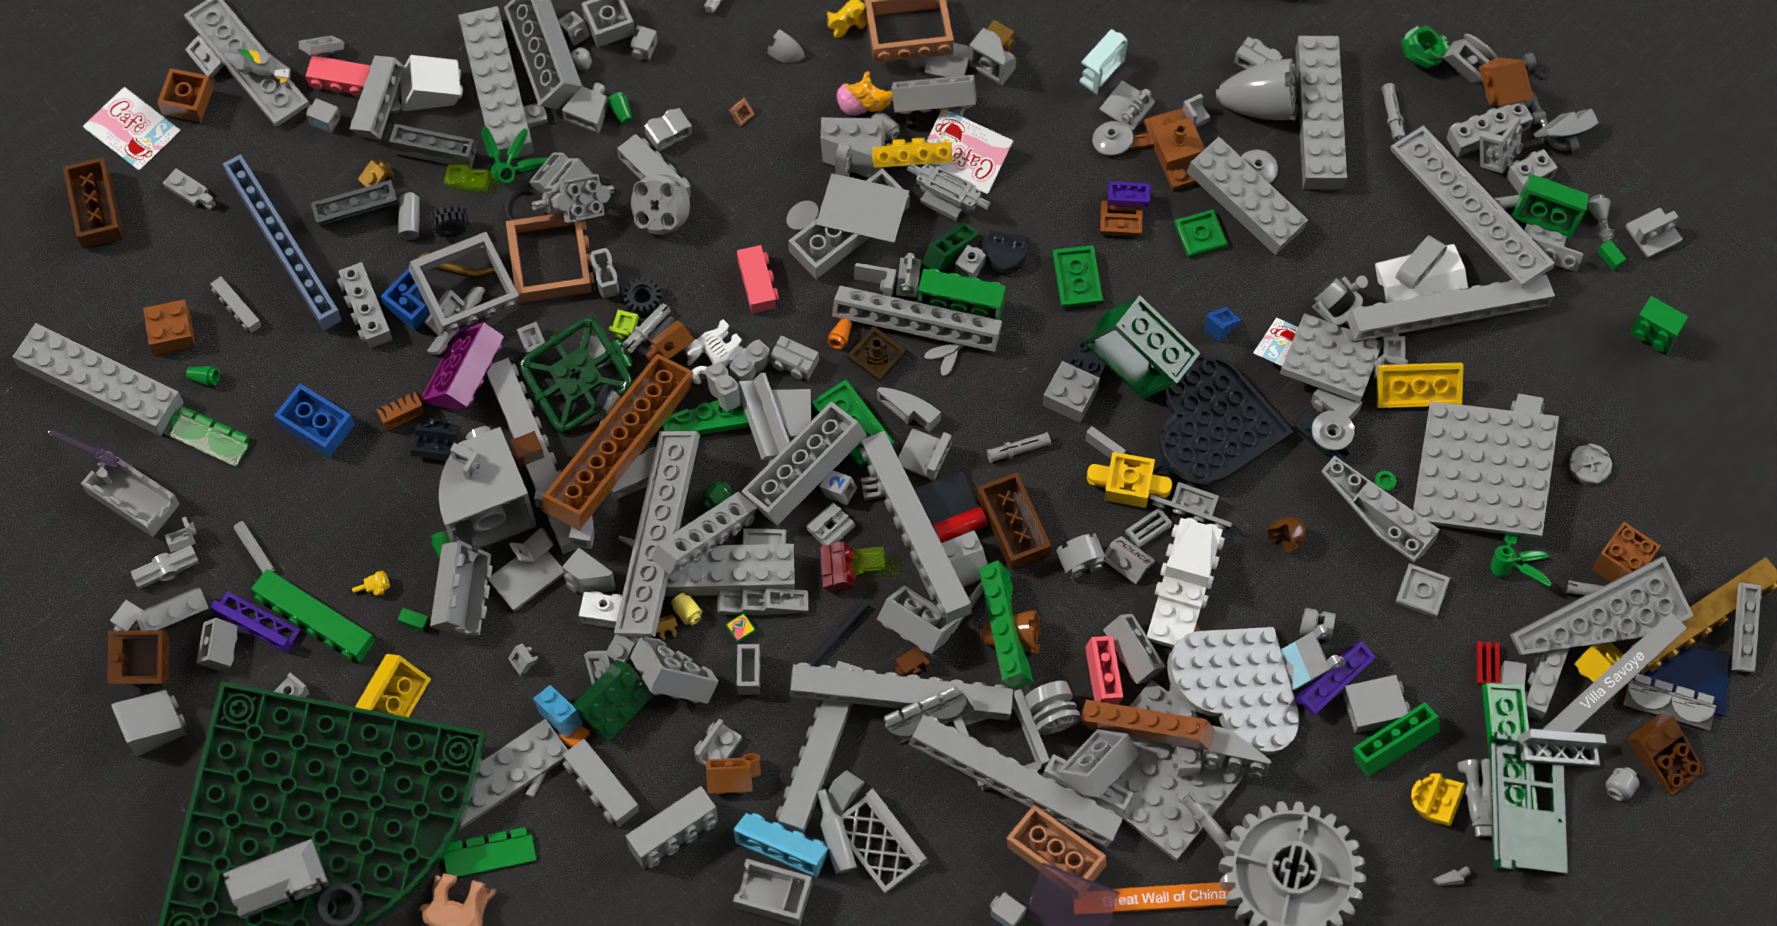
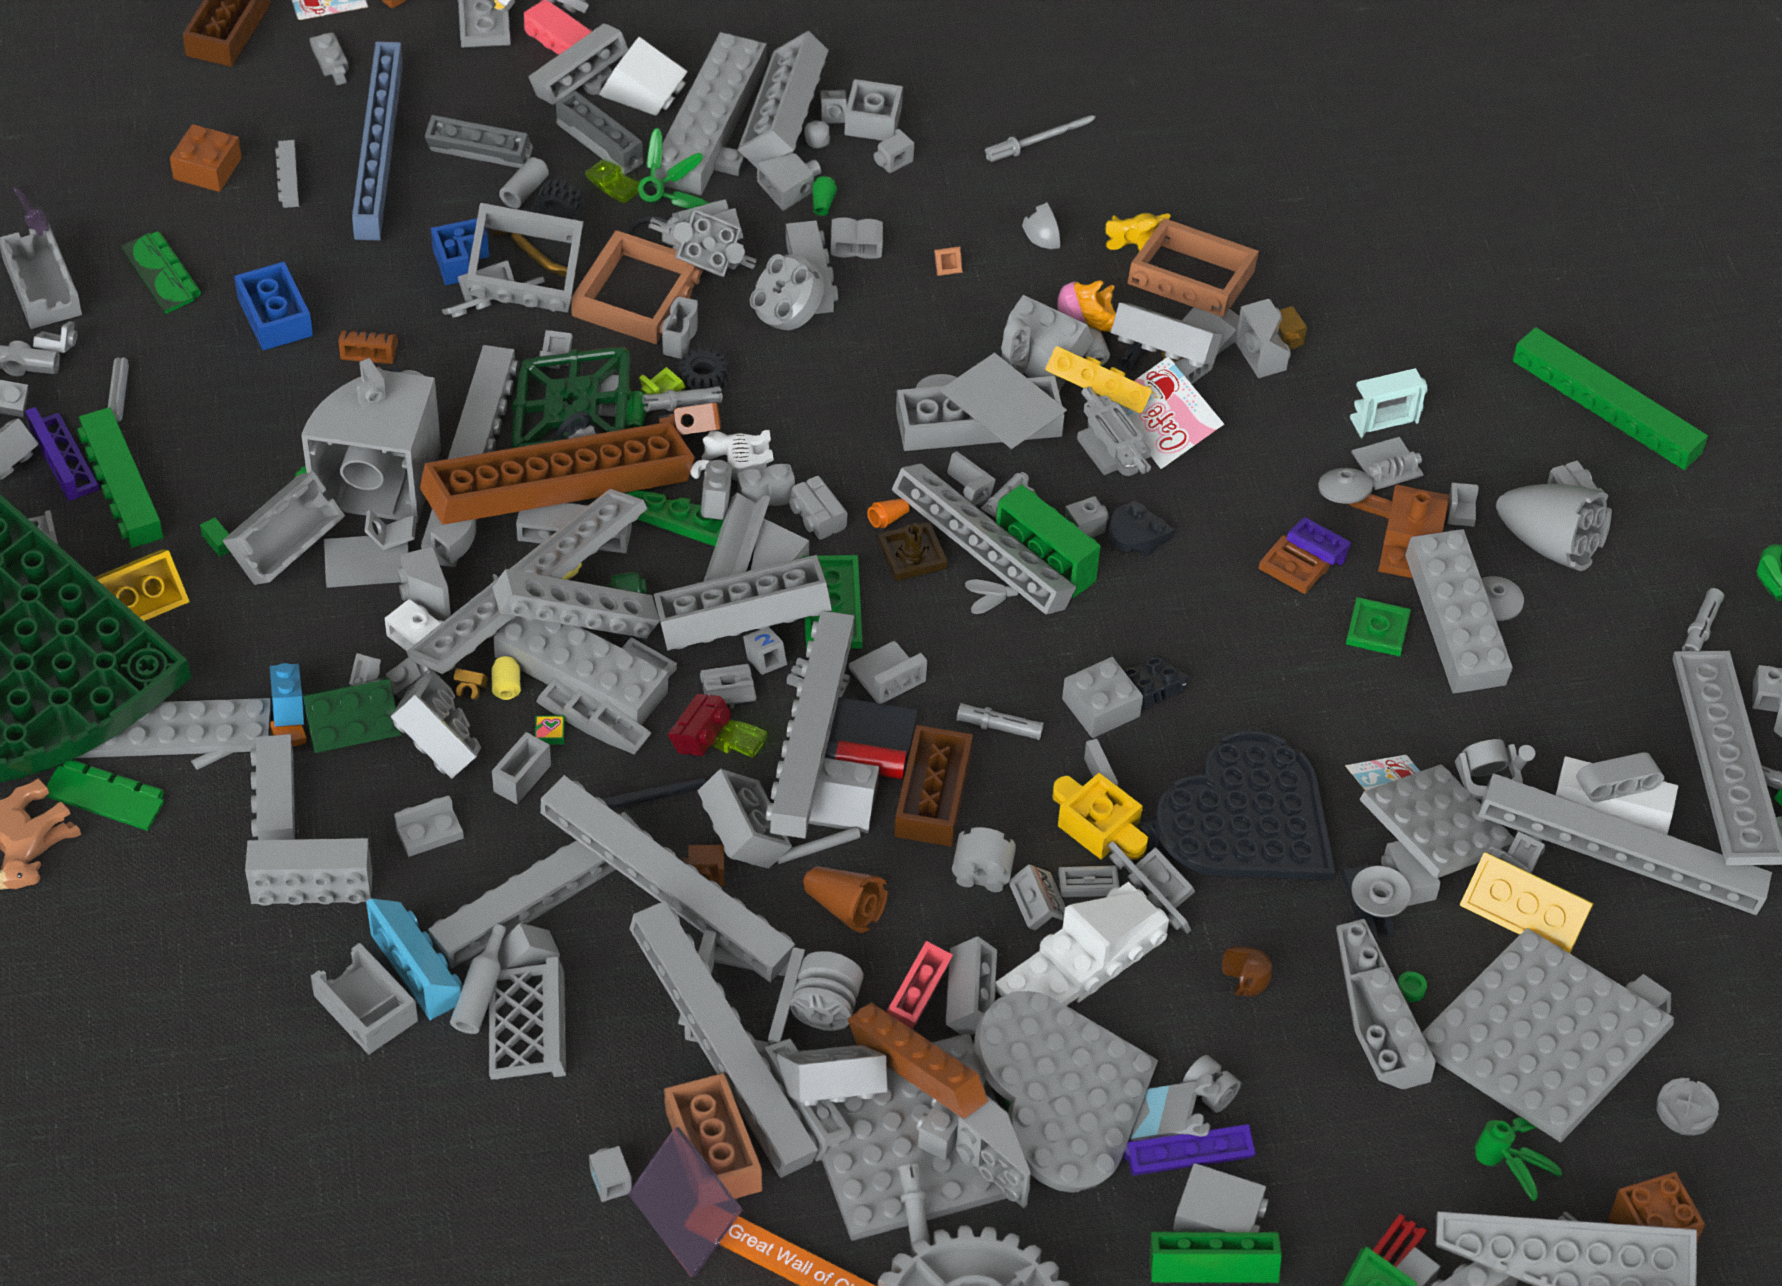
camera: 30 degrees right, 15 degrees down
(97, 379) = (98, 166): light grey brick -> none
(205, 375) = (204, 216): green cone -> none
(323, 115) = (514, 57): light grey brick -> none
(365, 305) = (412, 236): light grey brick -> none
(375, 173) = (527, 125): pearl gold bracket -> none
(375, 583) = (207, 483): yellow piece -> none
(463, 367) = (461, 332): magenta slope -> none
(522, 659) = (295, 631): light grey tile -> none
(526, 448) = (459, 434): reddish brown brick -> none
(732, 774) = (418, 859): dark orange hinge -> none
(757, 279) = (838, 416): coral brick -> none
(909, 407) = (907, 619): light grey slope -> none
(945, 709) = (700, 912): light grey windscreen -> none
(949, 247) = (1065, 488): dark green slope -> none
(1010, 654) = (815, 911): green arch -> none
(1077, 276) = (1199, 593): green plate -> none
(1141, 347) = (1206, 677): window -> none
(1221, 323) = (1332, 722): blue slope -> none
(1321, 113) = (1611, 578): light grey brick -> none
(1422, 590) = (1372, 1124): light grey tile -> none

